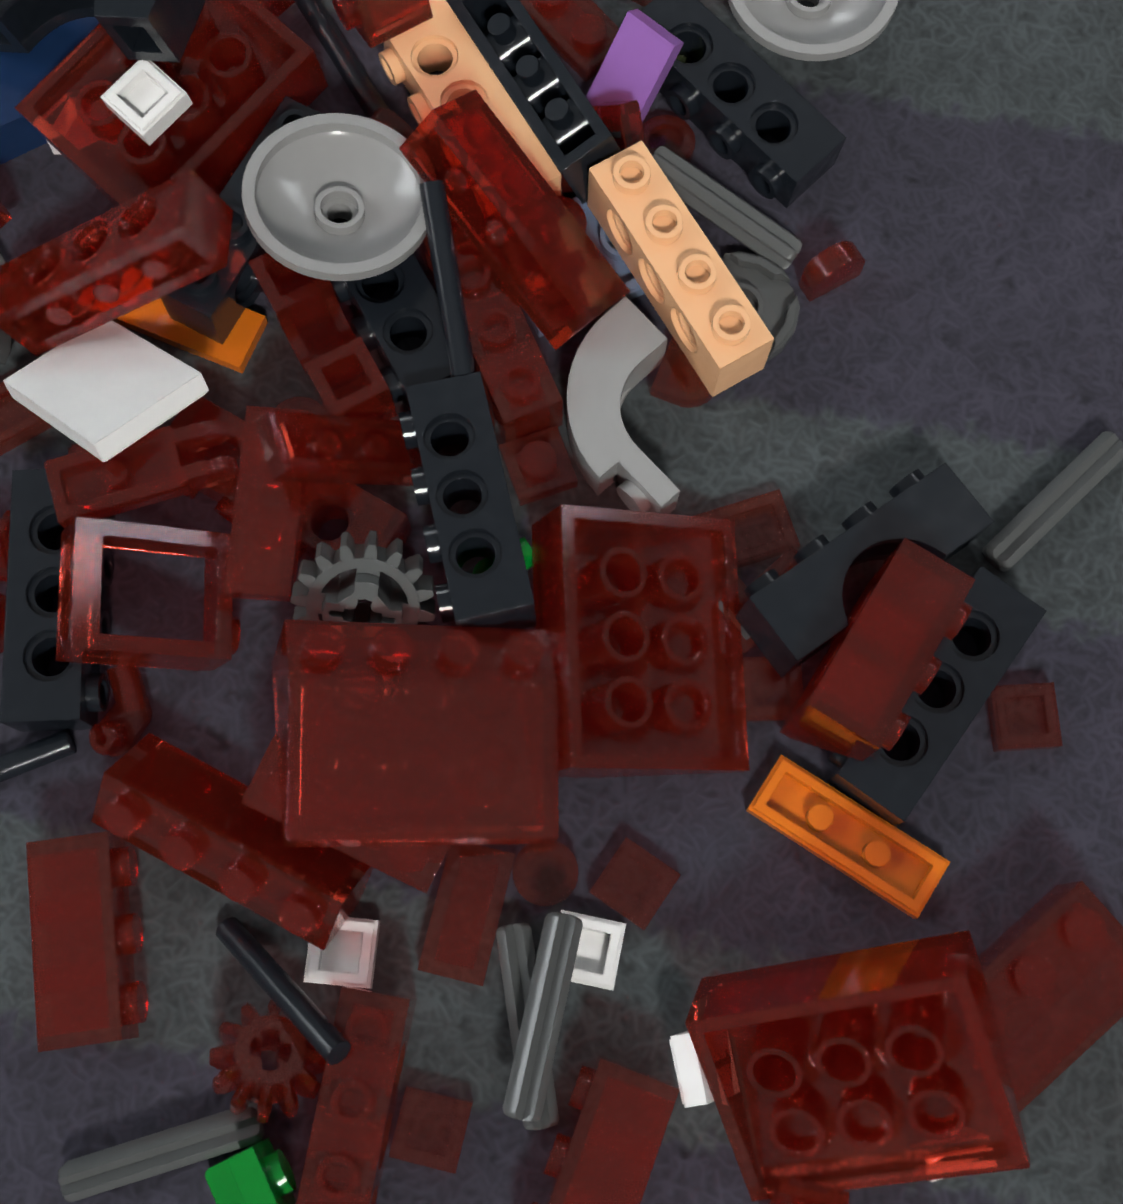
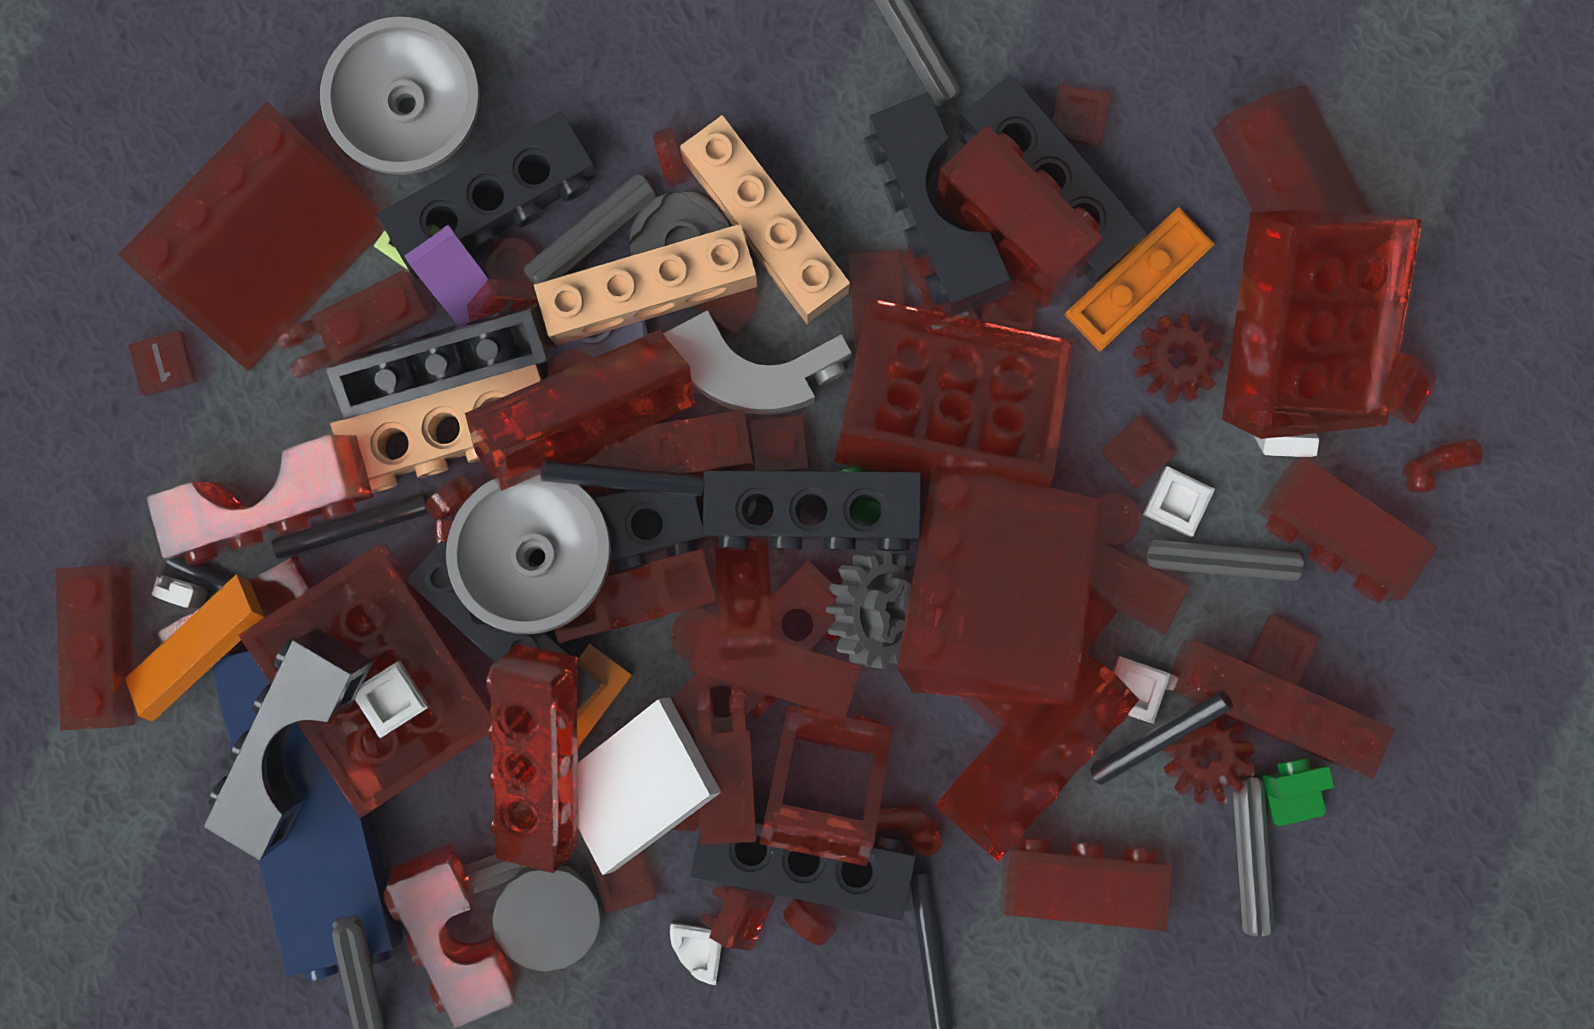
camera: 75 degrees left, 10 degrees up
(542, 1017) = (1225, 545): dark grey axle -> none
(783, 894) = (1184, 378): none -> clear red gear
(788, 383) = (767, 219): none -> light nougat brick

